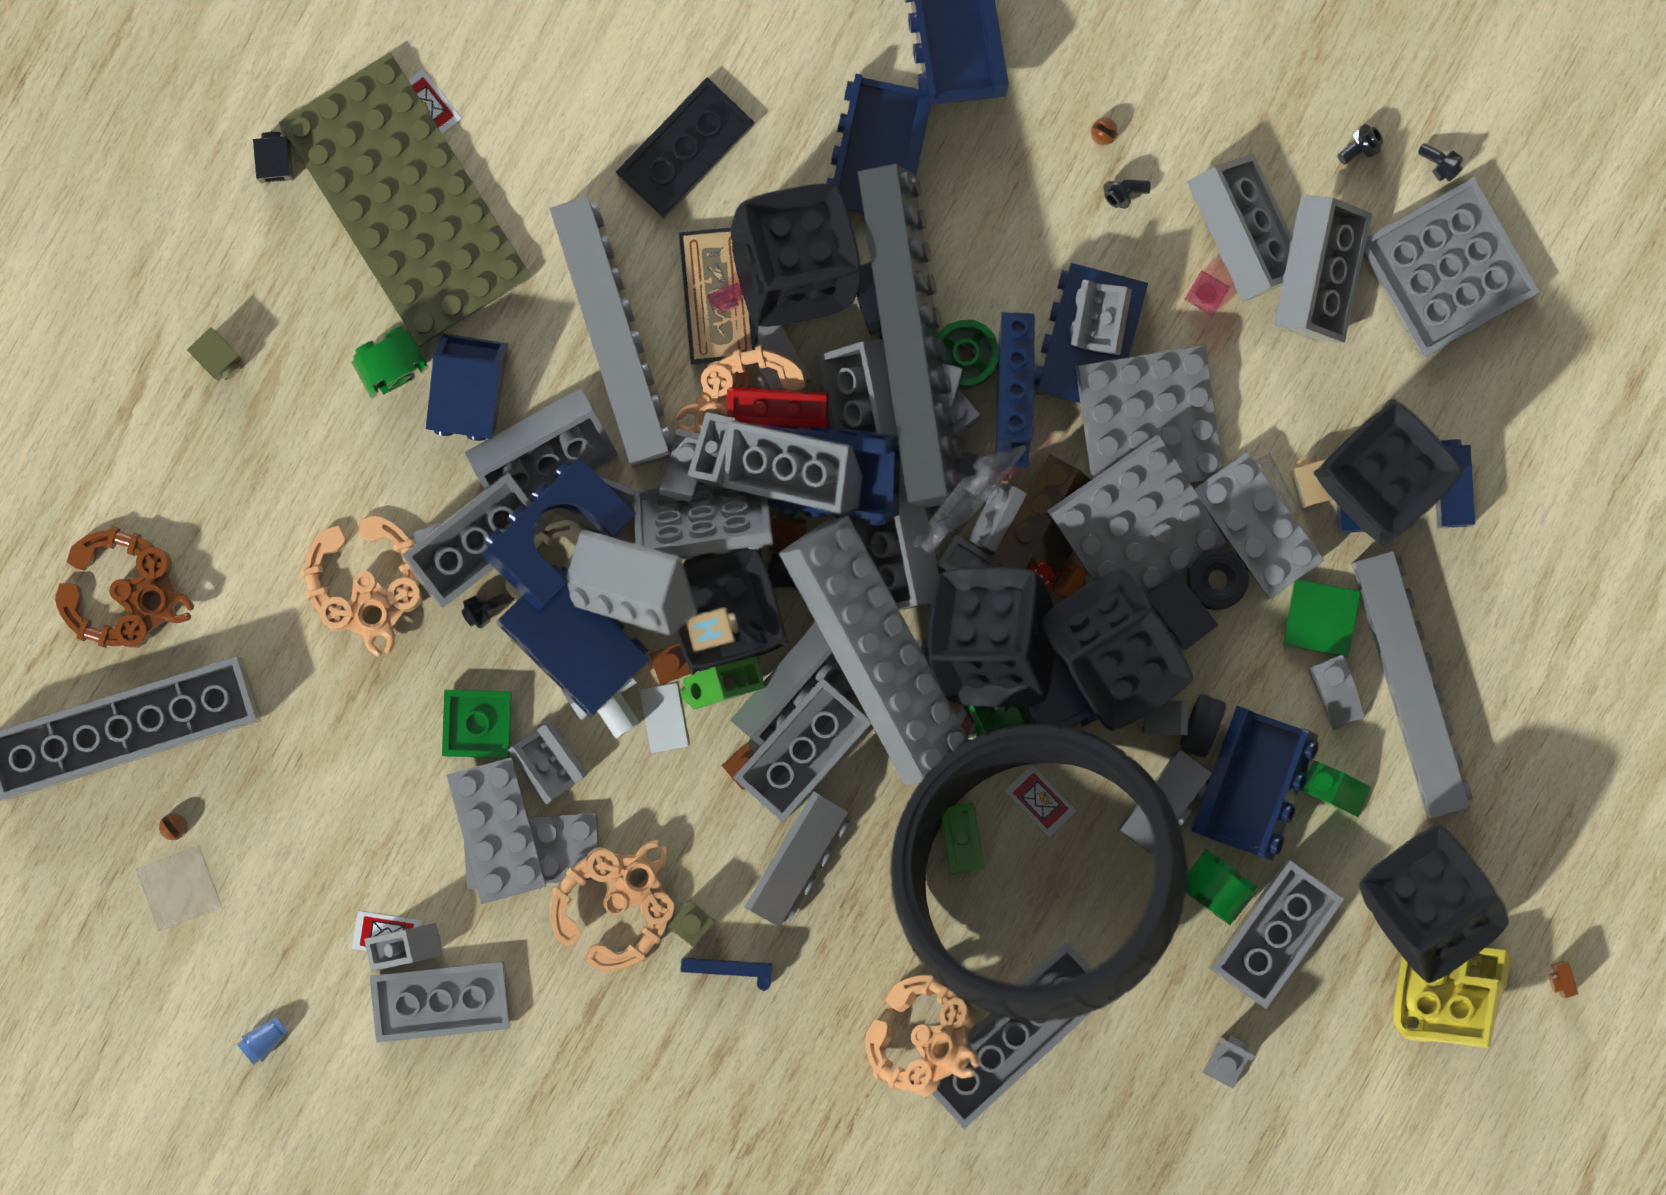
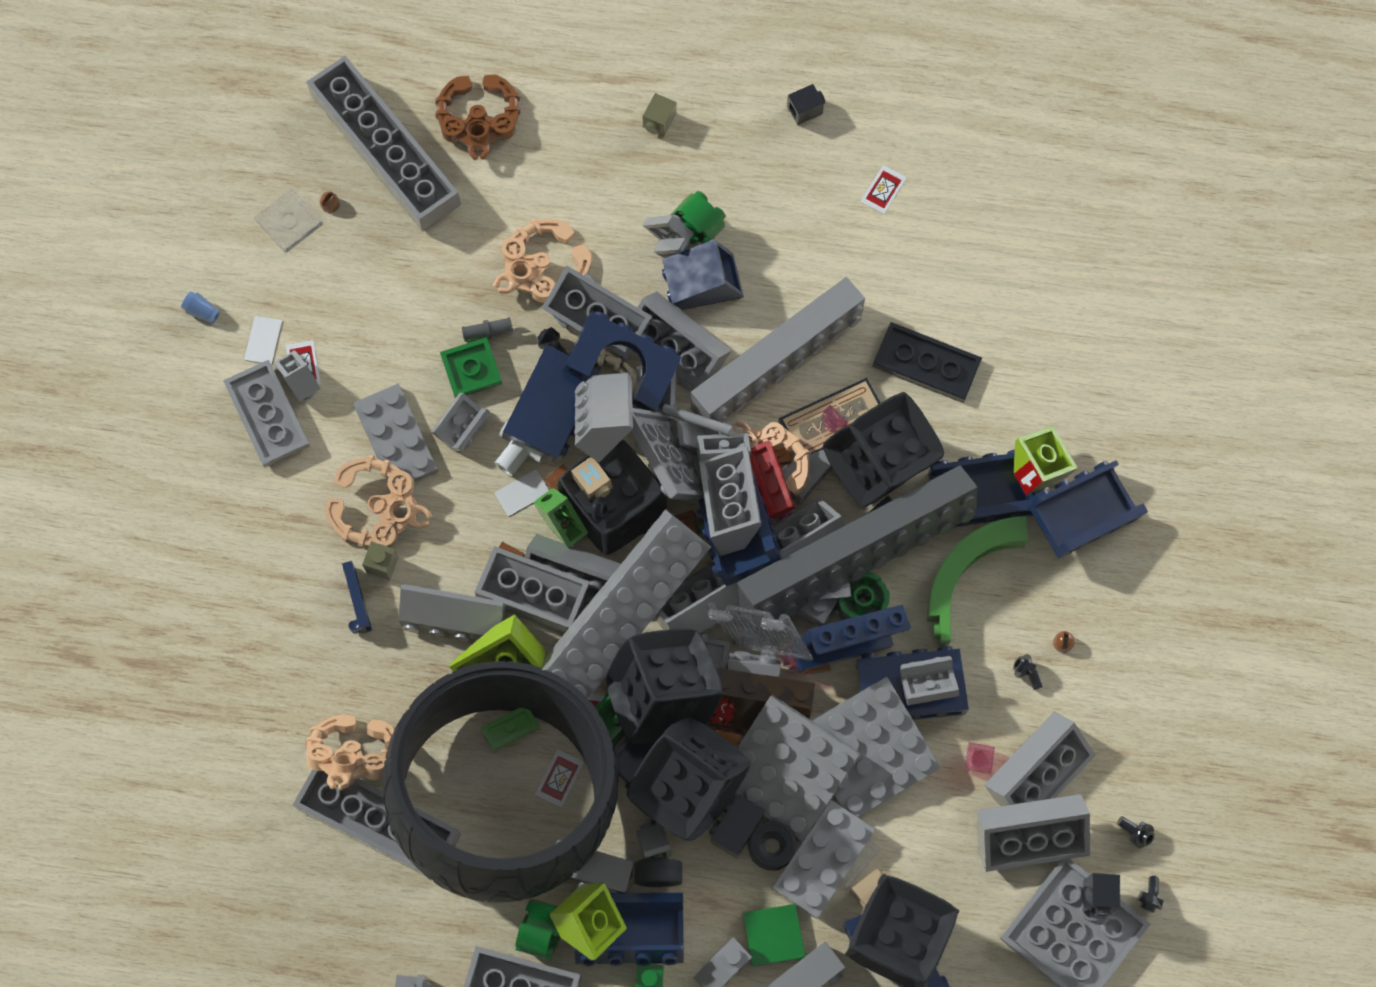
camera: 65 degrees right, 15 degrees down
(333, 974) = (263, 339): none -> white sticker
(397, 405) = (671, 233): none -> light grey bracket
(405, 200) = (813, 197): olive plate -> none
(431, 685) = (487, 329): none -> dark grey pin
(496, 830) = (399, 405): light grey plate -> none
(664, 467) = (697, 419): none -> light grey bar
(868, 815) = (503, 642): none -> lime slope
(876, 63) = (1041, 460): none -> lime slope
(960, 219) = (983, 541): none -> bright green arch
(1234, 827) = (589, 919): none -> lime slope
(1426, 222) = (1101, 894): none -> black brick

